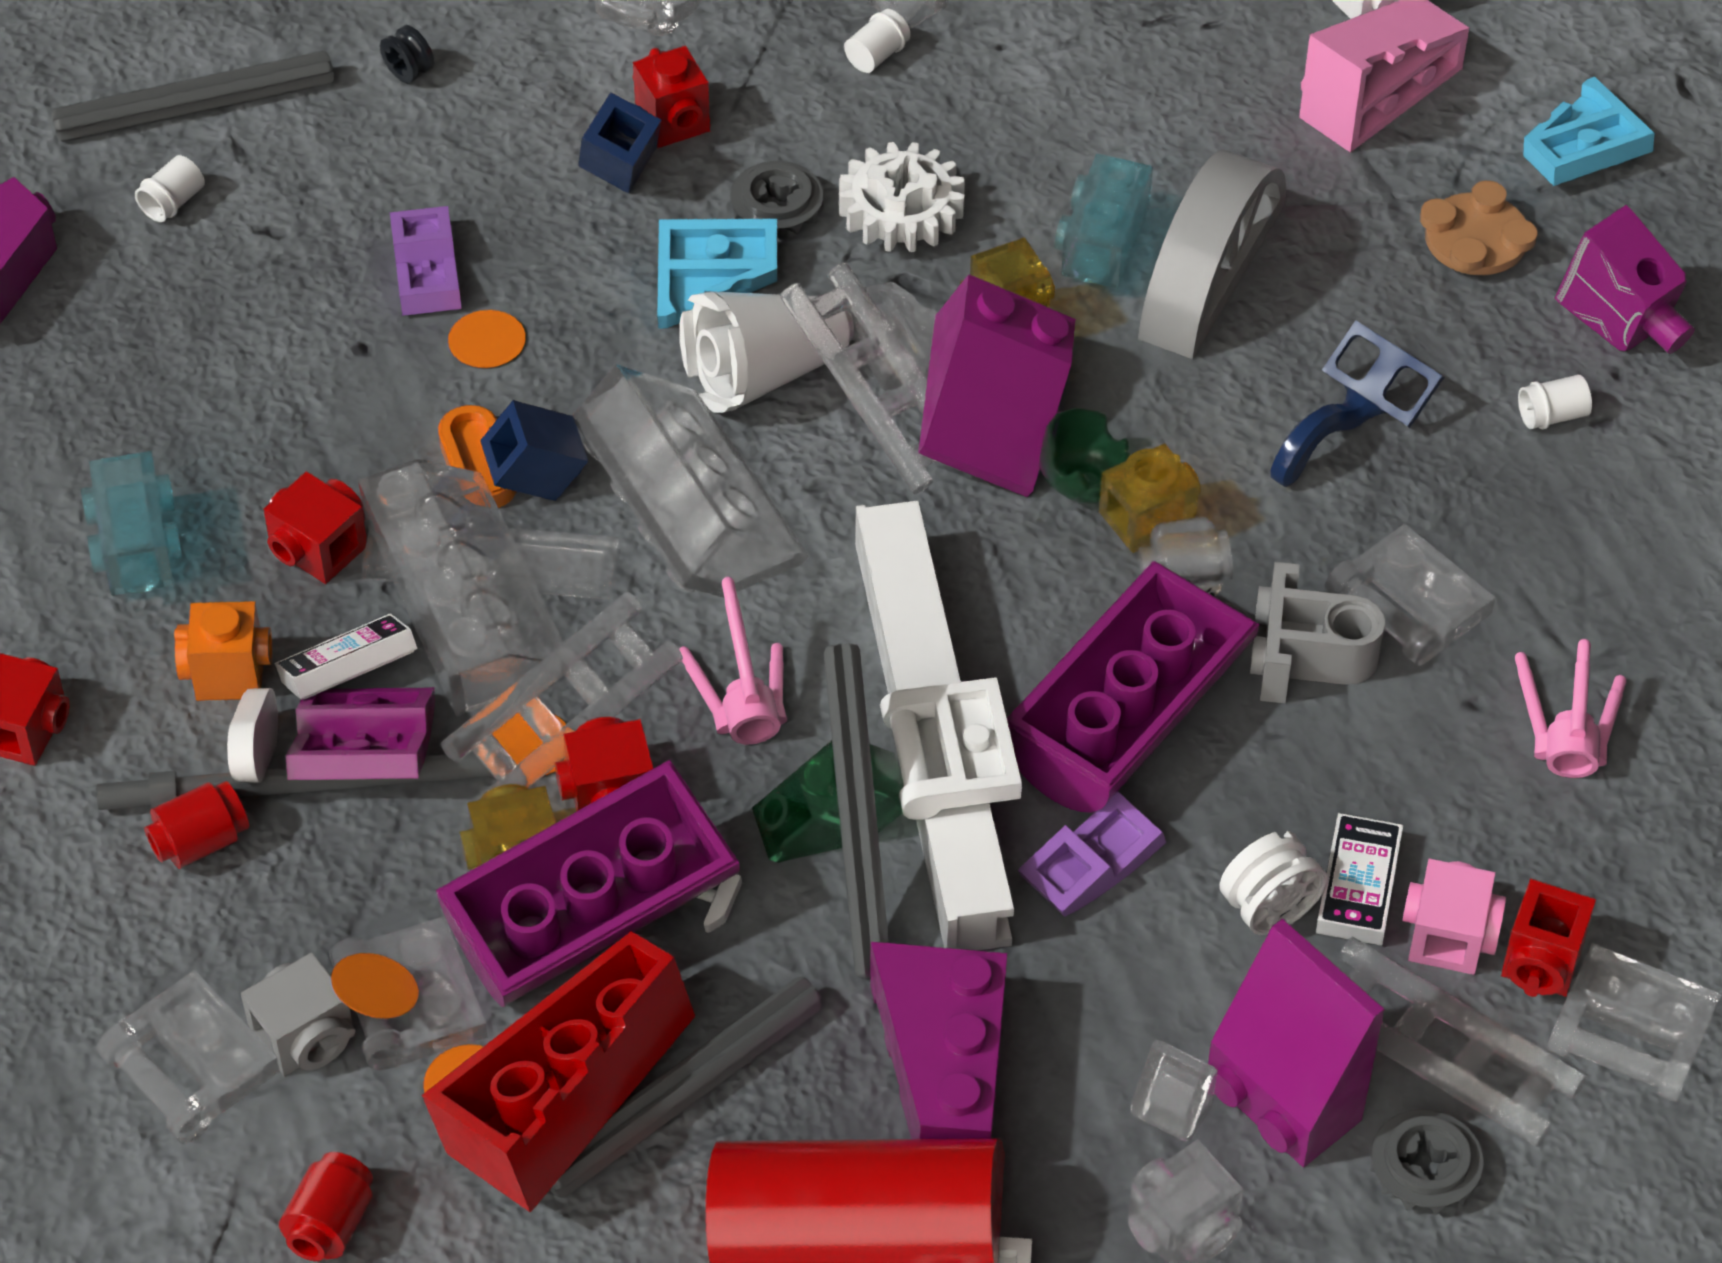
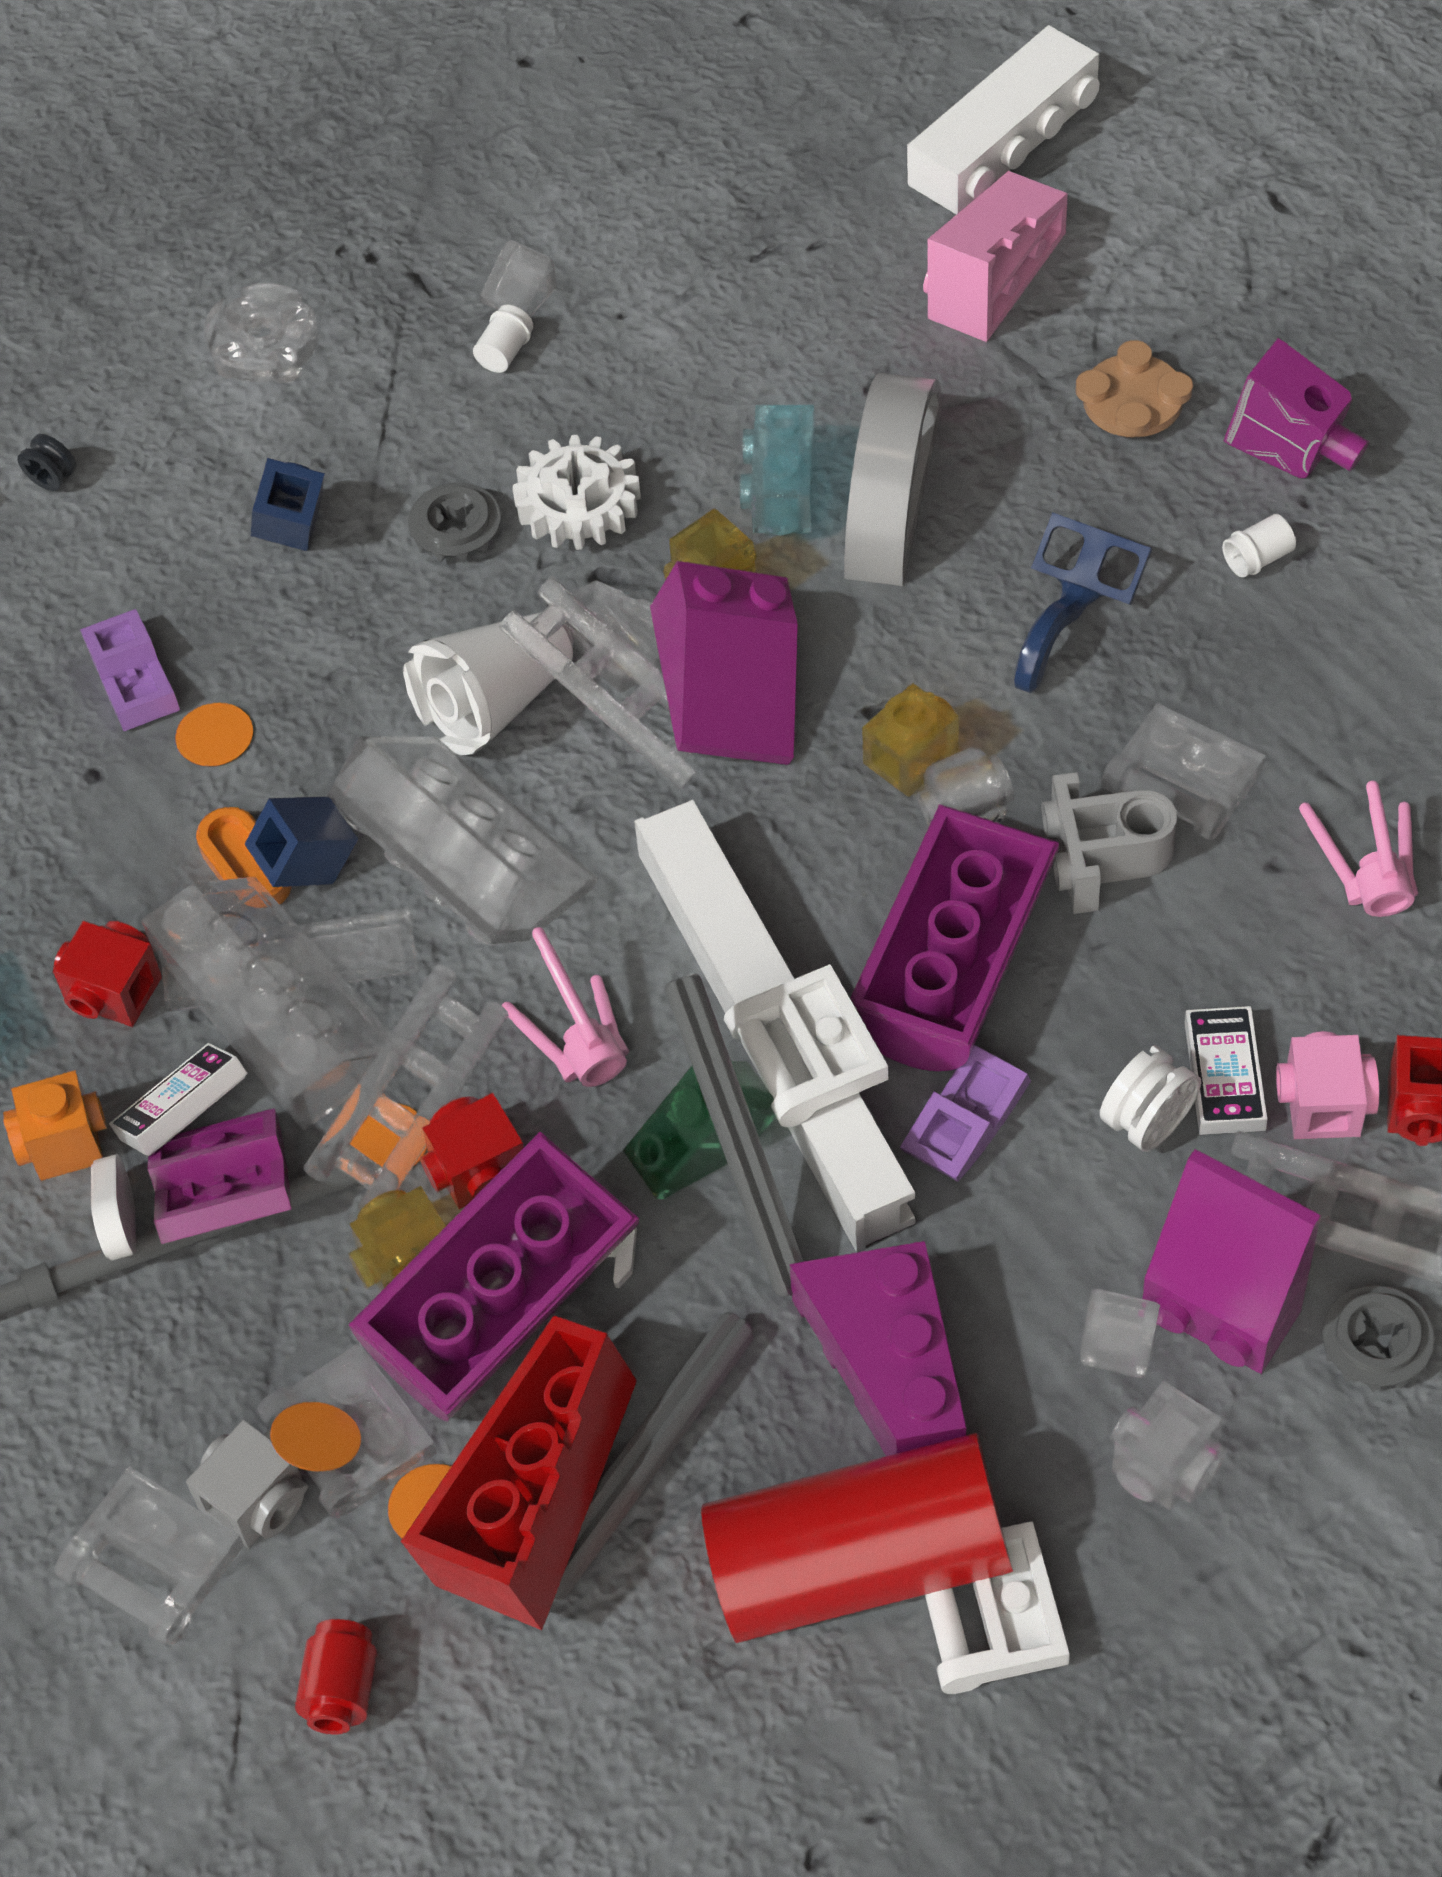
camera: 10 degrees left, 5 degrees up
(196, 824) = (83, 1312): red brick -> none
(674, 91) = (323, 439): red brick -> none
(712, 257) = (413, 603): medium azure wing -> none
(1077, 452) = (831, 712): clear green hair -> none
(1587, 136) = (1206, 273): medium azure wing -> none

